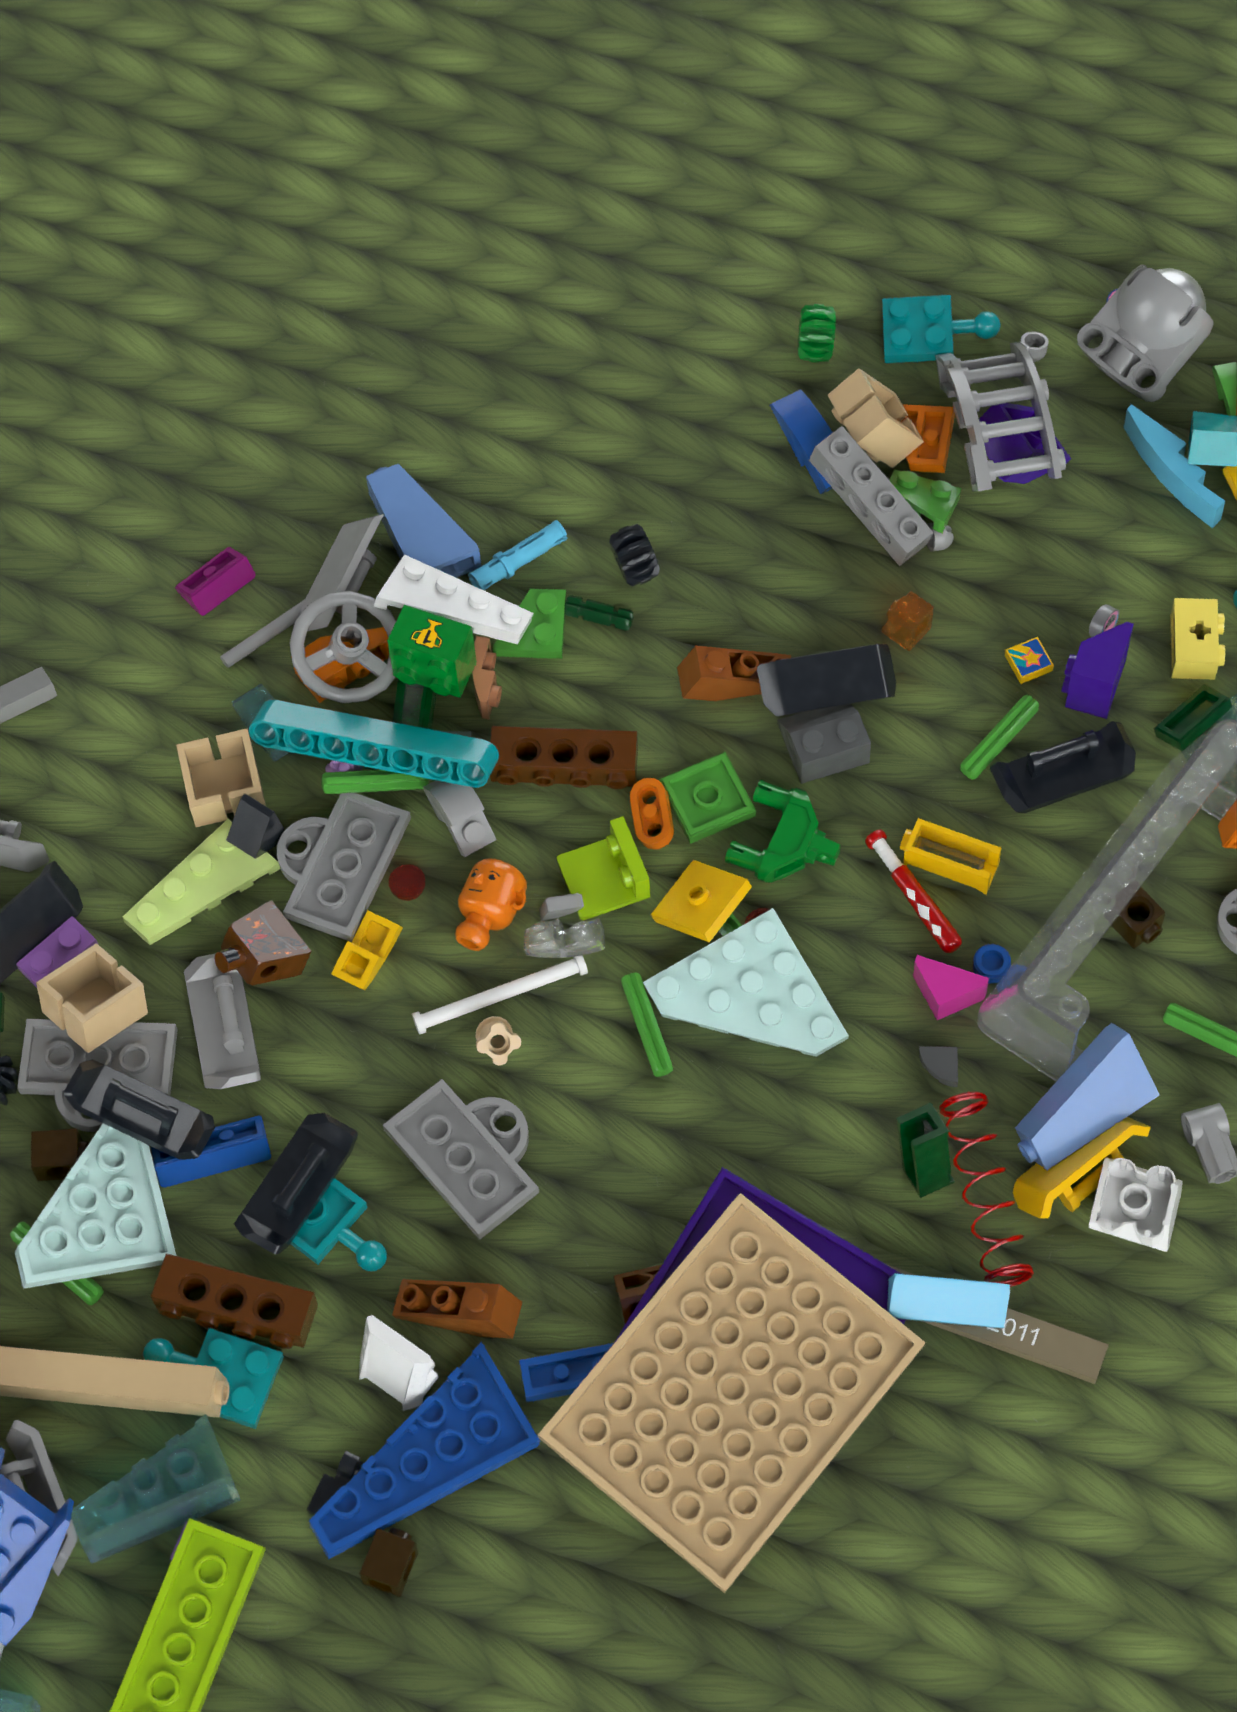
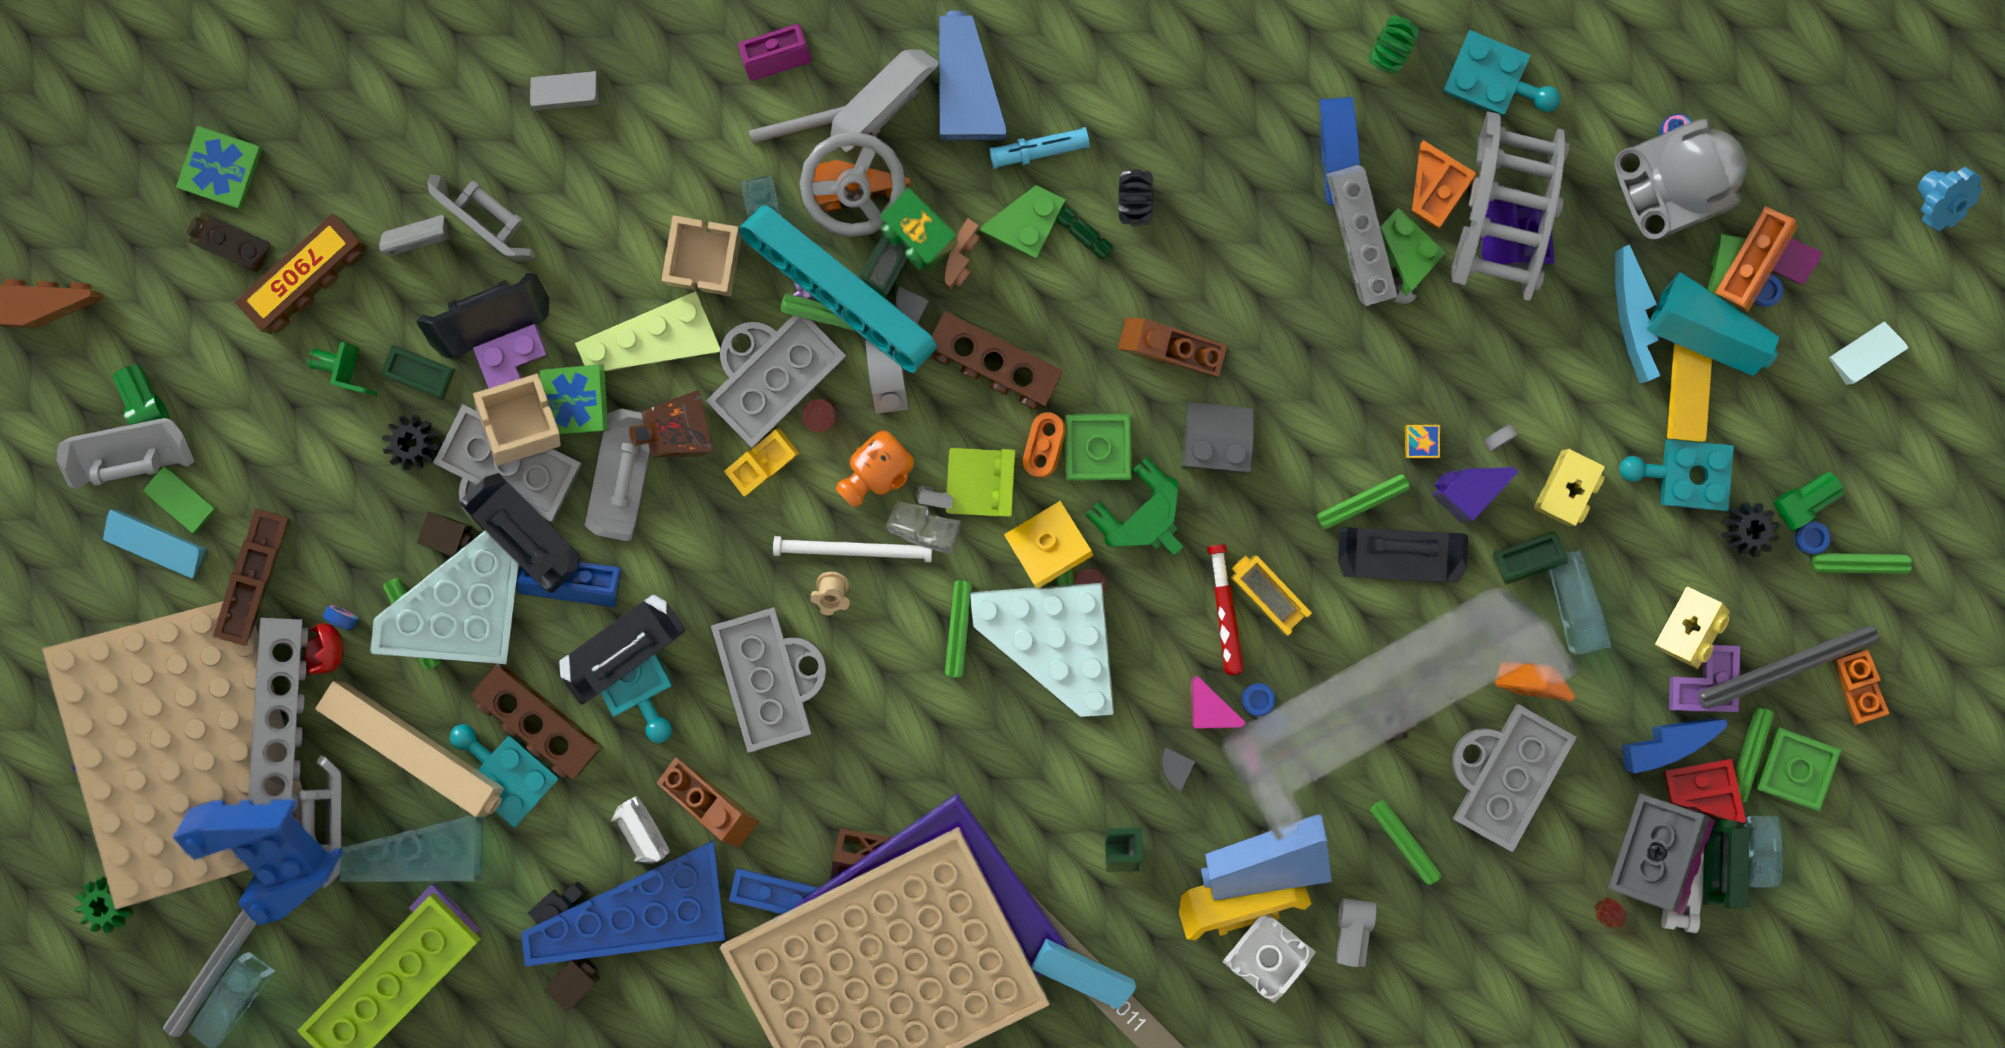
camera: 20 degrees right, 25 degrees up
(152, 960) = (576, 398): none -> bright green tile
(254, 827) = (711, 318): black slope -> none
(446, 596) = (950, 169): white wing -> none
(827, 679) = (1243, 394): black piece -> none
(873, 418) = (1395, 149): tan piece -> none
(908, 620) = (1338, 362): clear orange brick -> none
(1026, 1270) = (1141, 970): red piece -> none
(1034, 339) = (1573, 133): light grey hinge -> none

